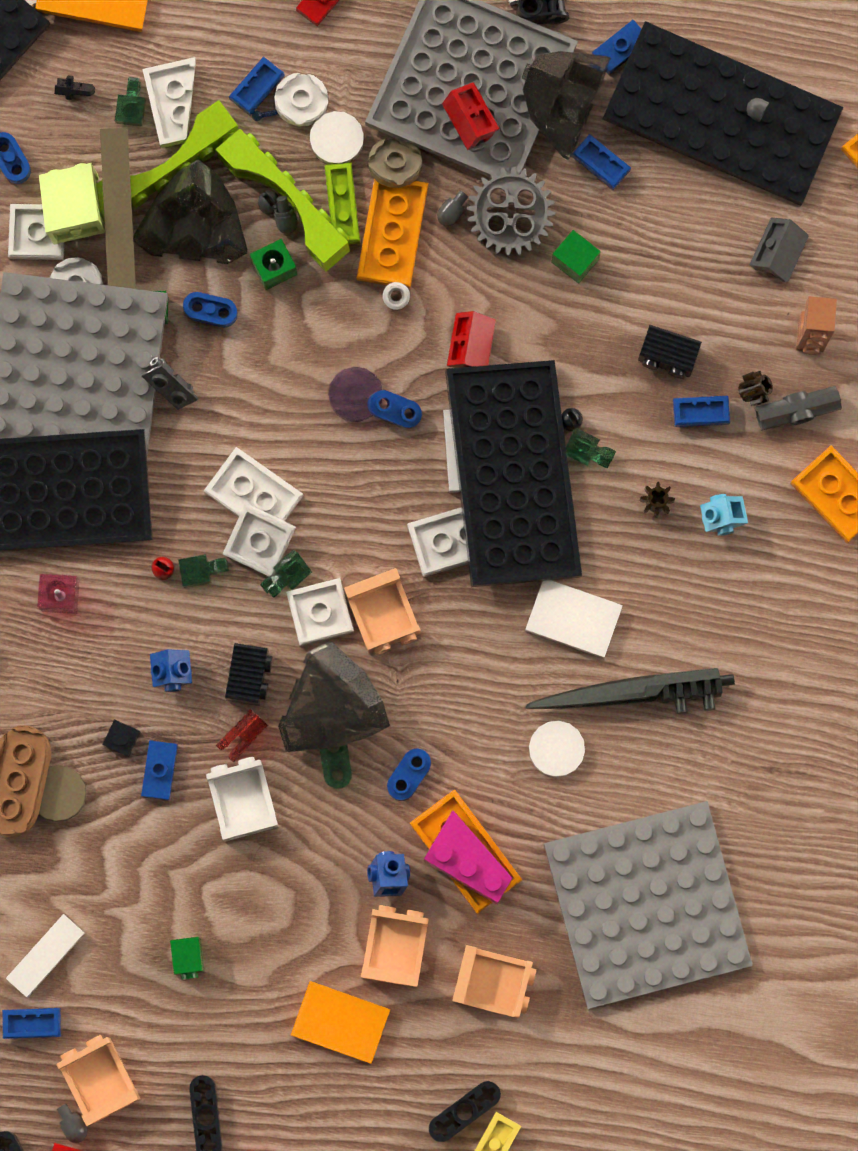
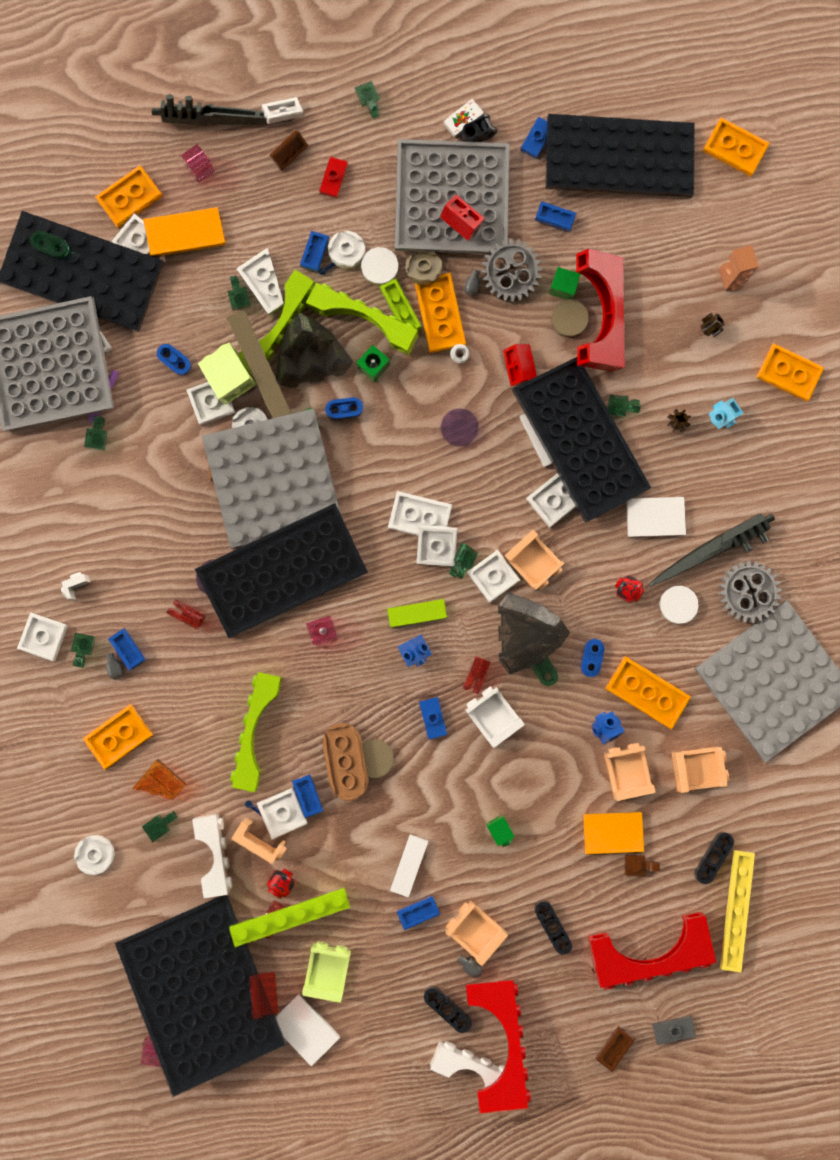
camera: 25 degrees left, 5 degrees up
(69, 88) = (193, 299): black piece -> none
(121, 738) = (400, 707): black plate -> none
(158, 572) = (379, 591): red hinge -> none
(170, 386) = (339, 468): dark grey hinge -> none
(195, 621) = (417, 613): none -> lime tile
(197, 570) = (404, 580): clear green plate -> none
(247, 674) = (465, 635): black brick -> none
(264, 206) = (352, 328): dark grey hinge -> none
(285, 216) = (368, 329): dark grey cylinder -> none
(354, 1079) = (636, 865): none -> reddish brown plate
(395, 409) = (489, 427): blue plate -> none
(467, 860) = (654, 699): dark pink wedge -> none
(496, 700) = (629, 589): none -> red head
(561, 95) = (515, 181): clear smoke brick -> none
(565, 305) = (569, 318): none -> dark tan tile
(567, 423) = (603, 394): black hinge -> none
(636, 270) = (606, 275): none -> arch
(669, 352) = (648, 322): black brick -> none
(685, 770) = (765, 586): none -> light grey gear
(701, 411) = (683, 353): blue plate -> none
(757, 108) = (643, 143): dark grey hinge -> none
(779, 248) = (690, 229): dark grey panel -> none
(798, 408) = (744, 327): dark grey piece -> none

